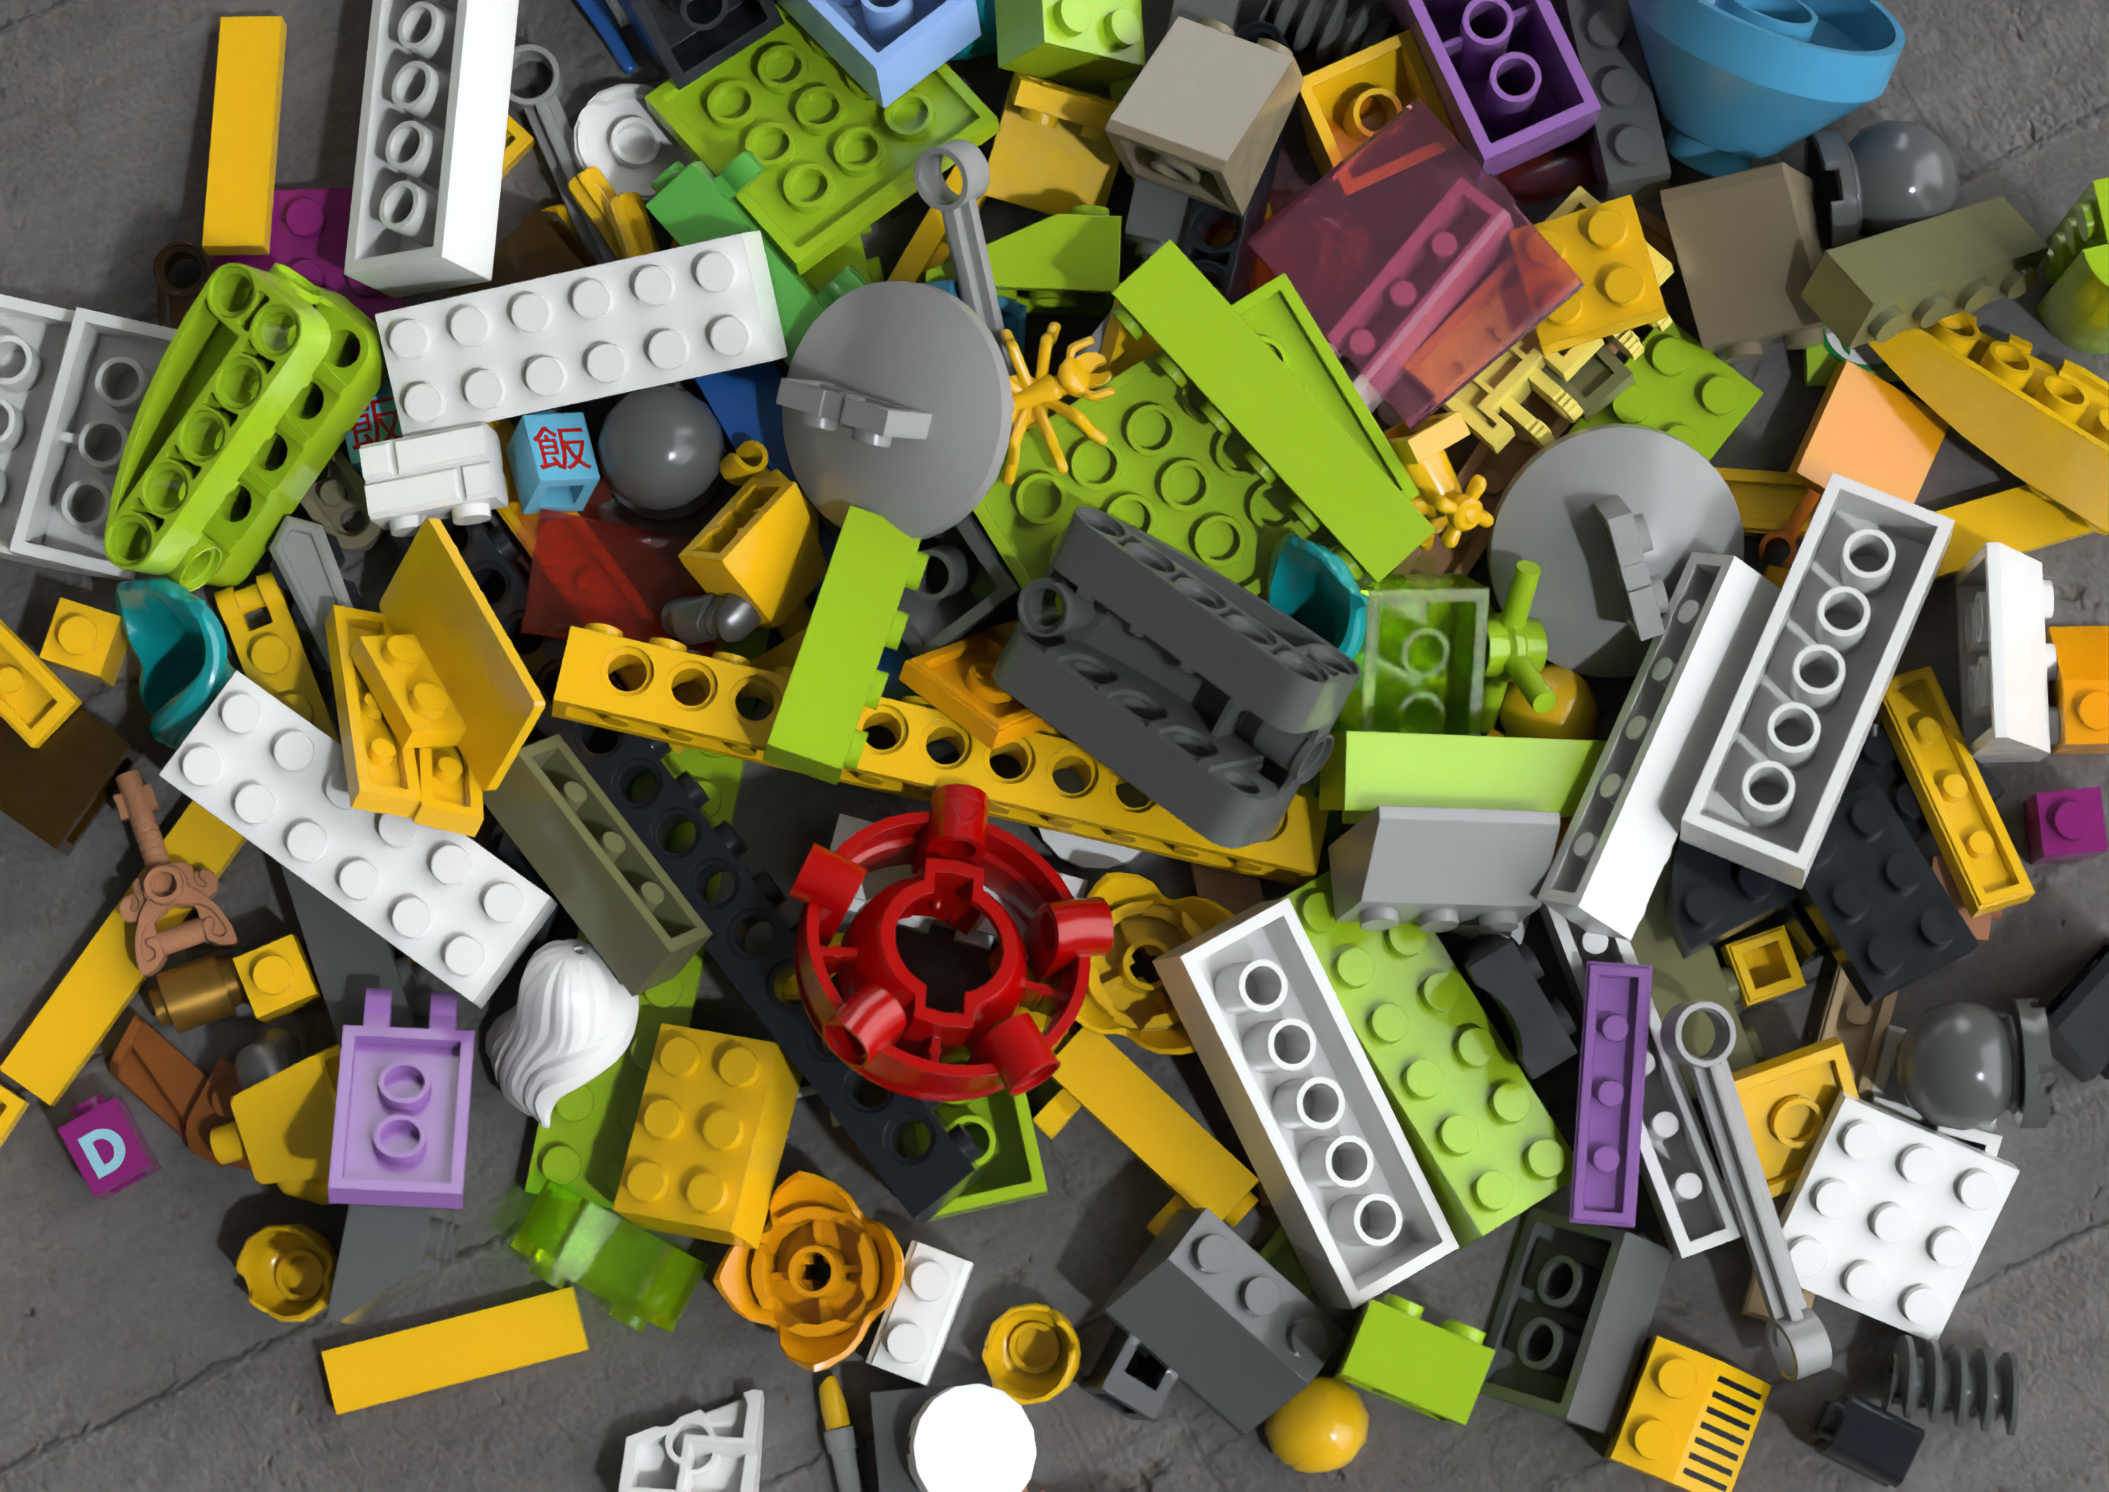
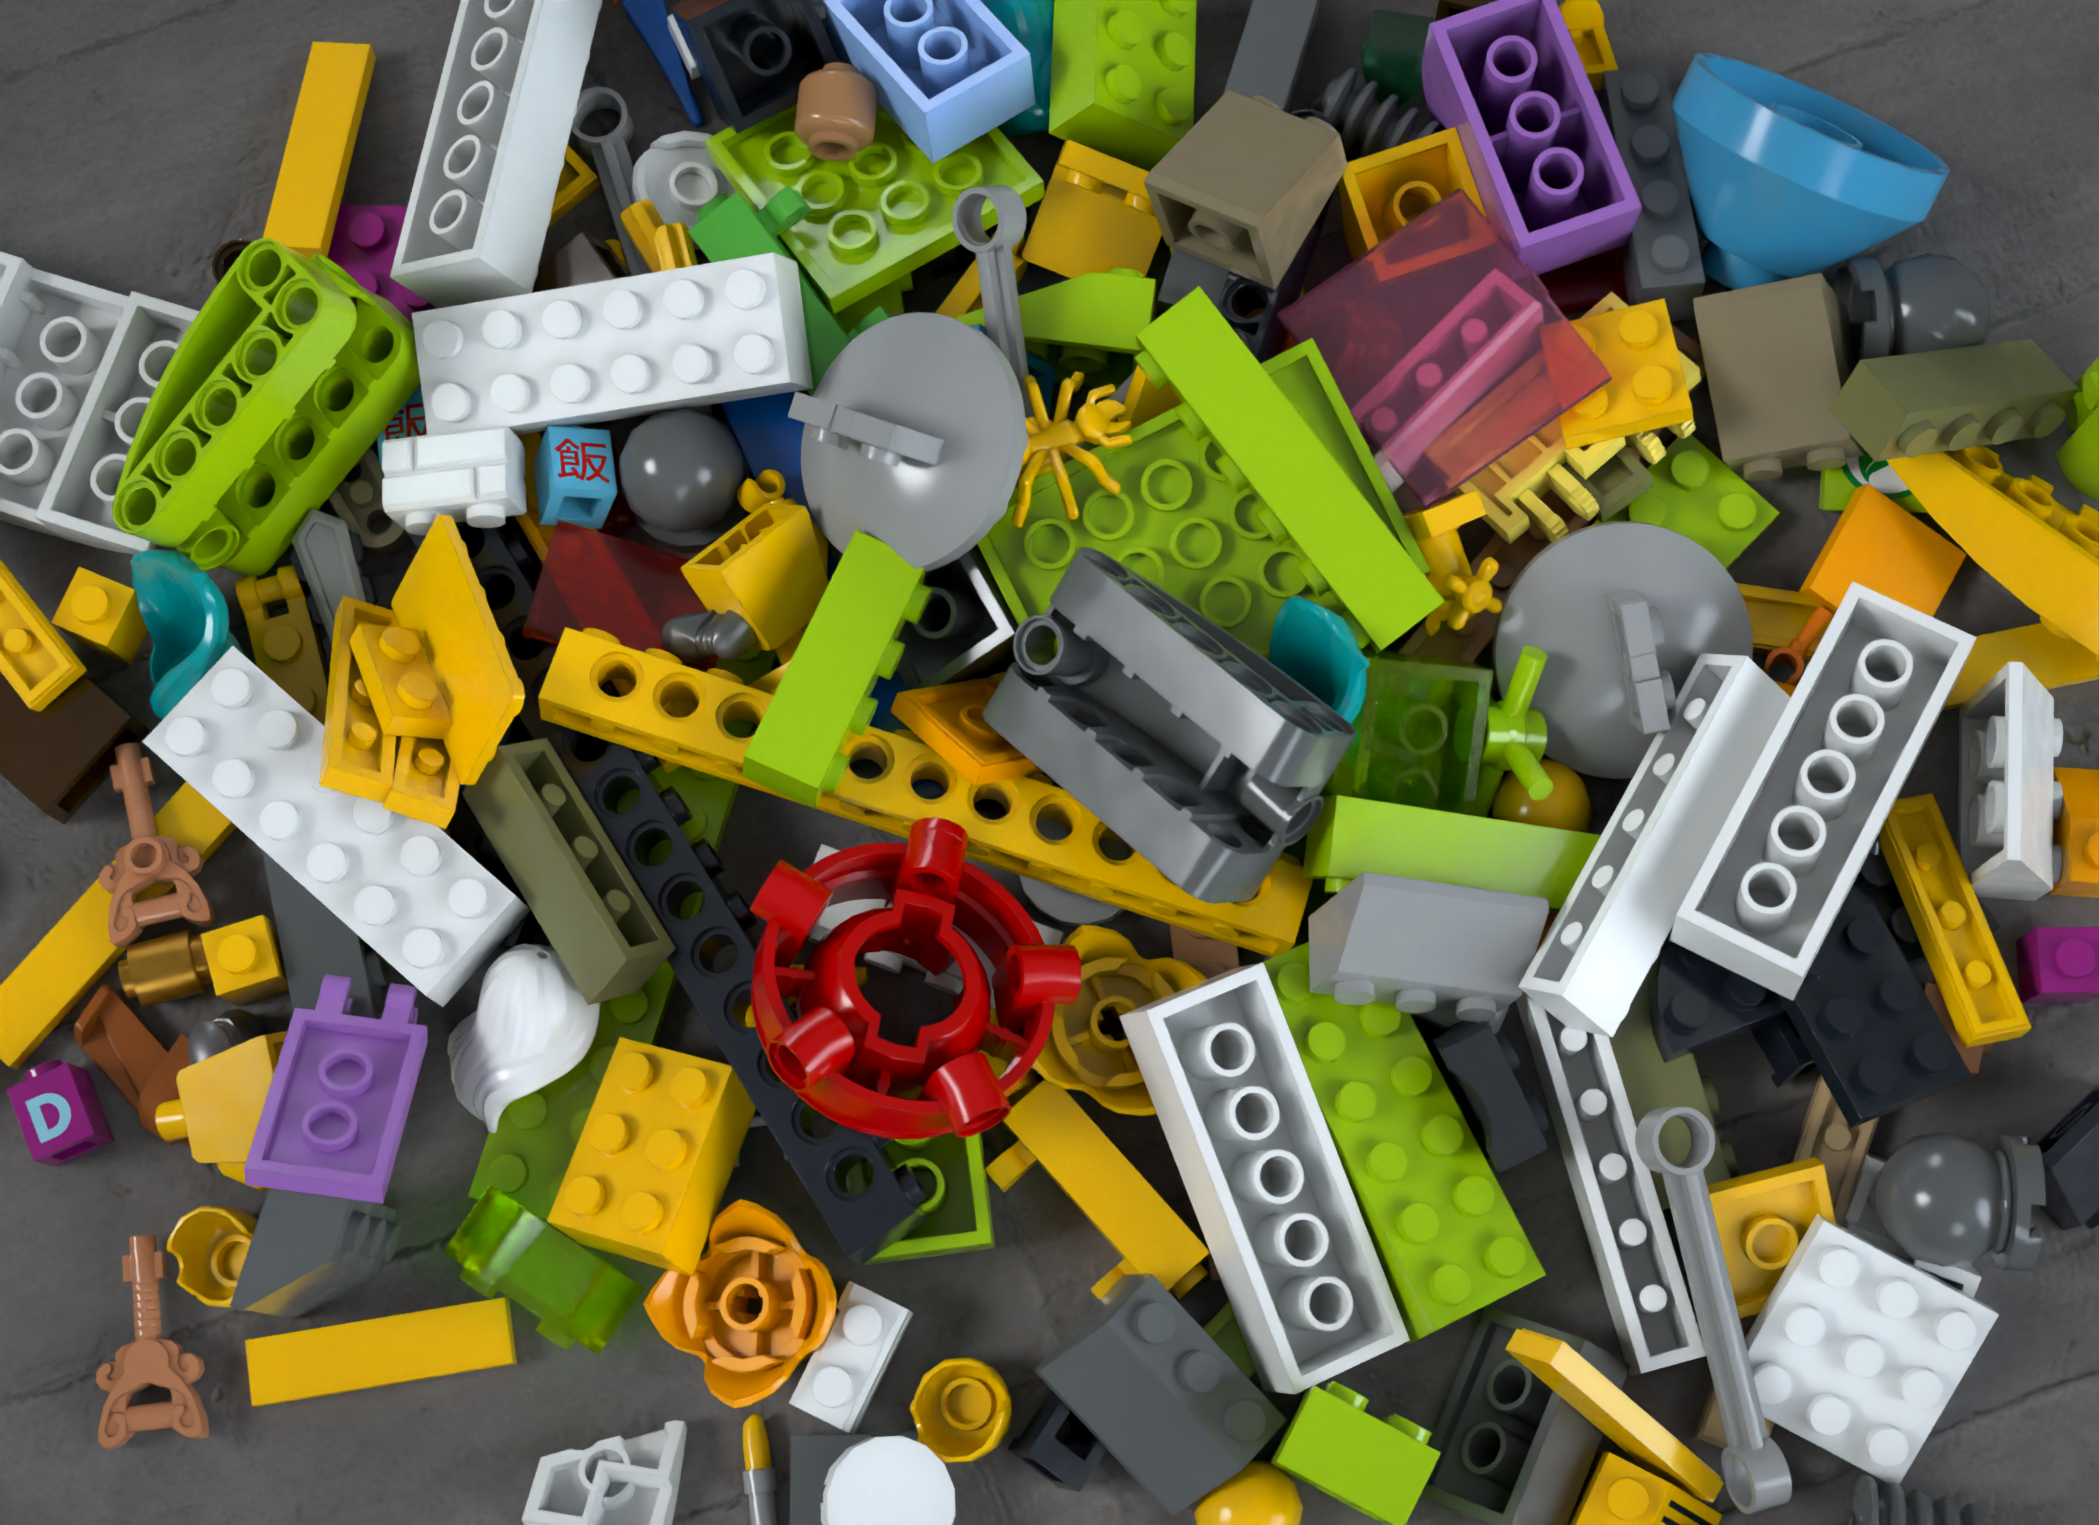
camera: 10 degrees right, 5 degrees down
(229, 1381) = (149, 1362): none -> nougat piece
(780, 62) = (836, 112): none -> medium nougat head
(1610, 1094) = (1579, 1196): medium lavender tile -> none
(1659, 1299) = (1614, 1413): none -> yellow tile
(1764, 966) = (1743, 1081): yellow brick -> none

